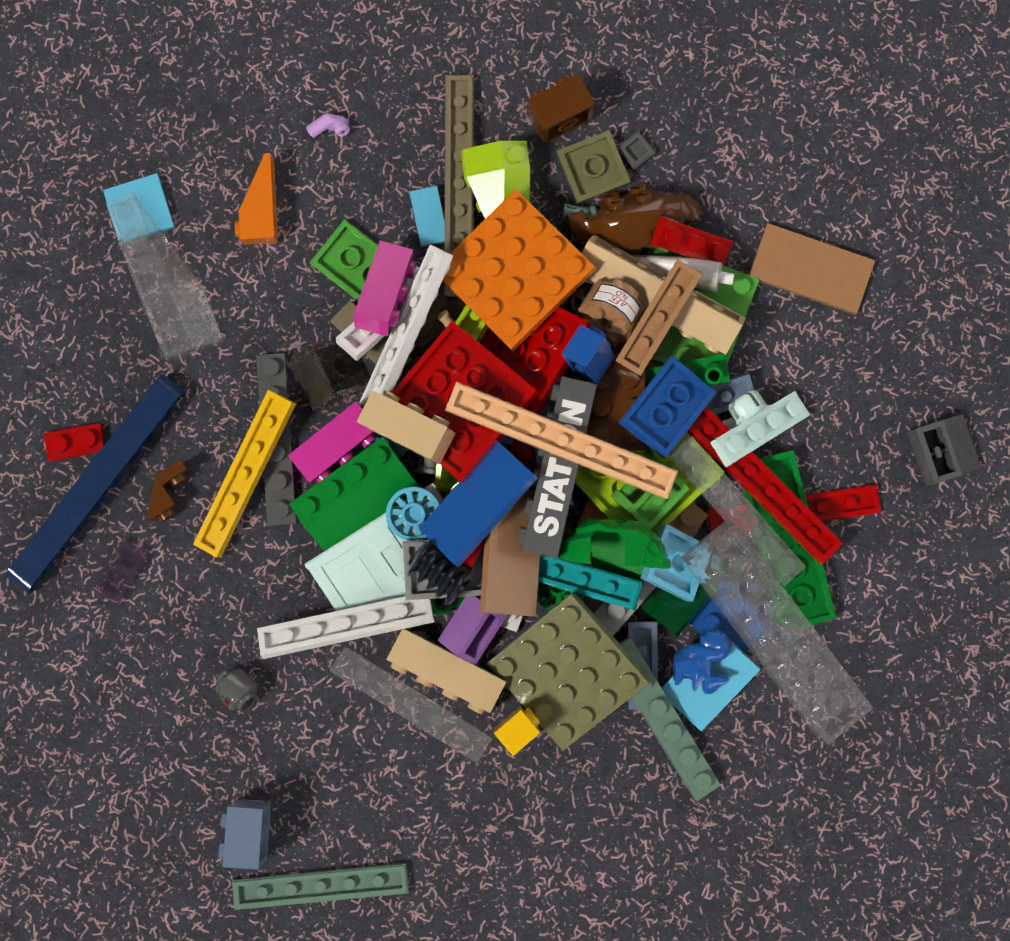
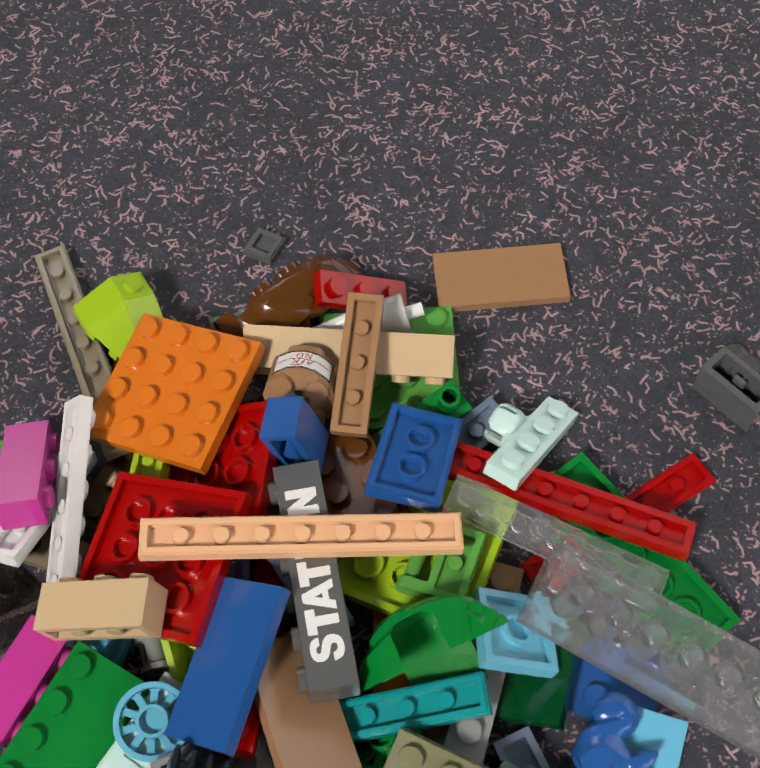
camera: 25 degrees left, 25 degrees down
(428, 216) = (57, 385): medium azure tile -> none
(560, 108) = (165, 230): reddish brown brick -> none
(593, 167) = (225, 275): olive plate -> none

